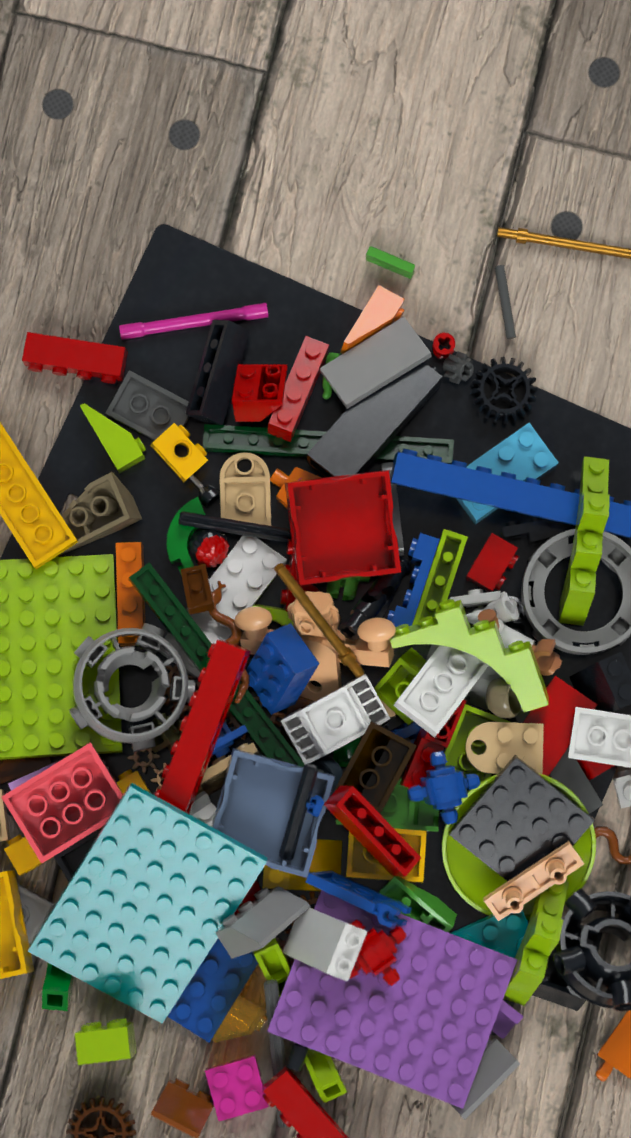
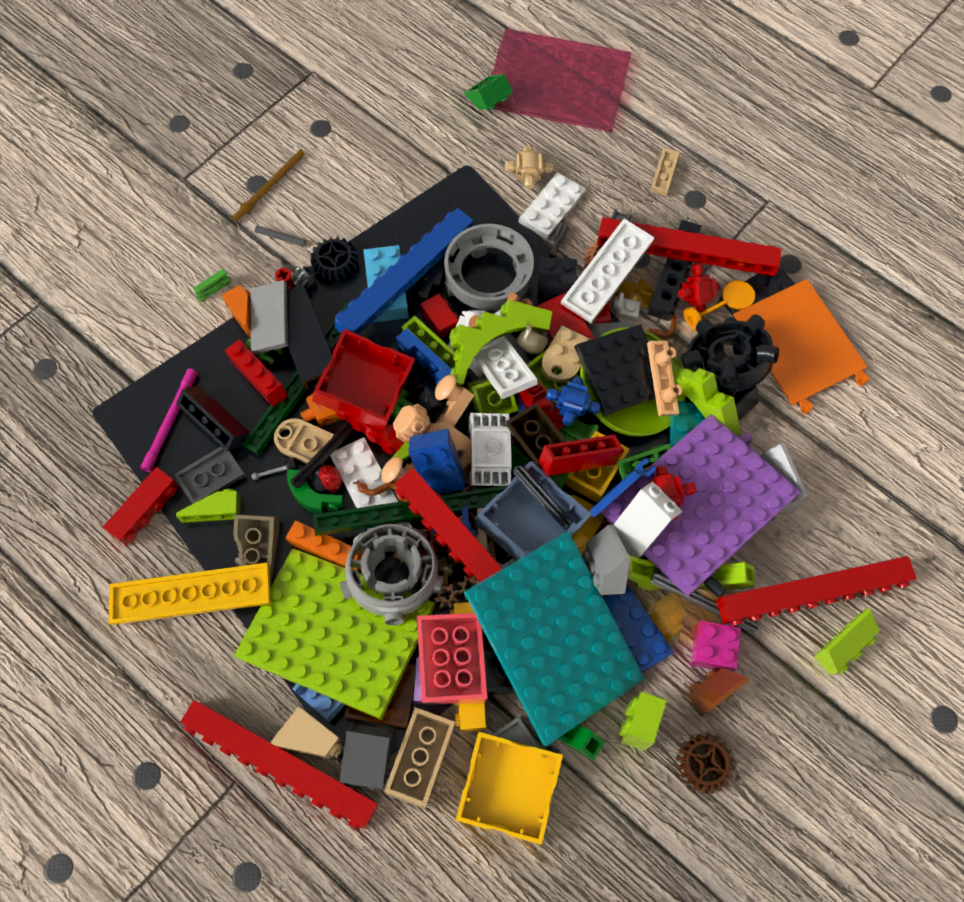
camera: 65 degrees left, 15 degrees down
(165, 445) = (242, 473): yellow brick -> none
(197, 589) = (350, 495): reddish brown plate -> none
(258, 391) = (241, 395): red slope -> none
(315, 805) = (545, 481): blue rock -> none
(345, 654) = (450, 415): pearl gold bar -> none
(587, 542) = (444, 229): lime arch -> none

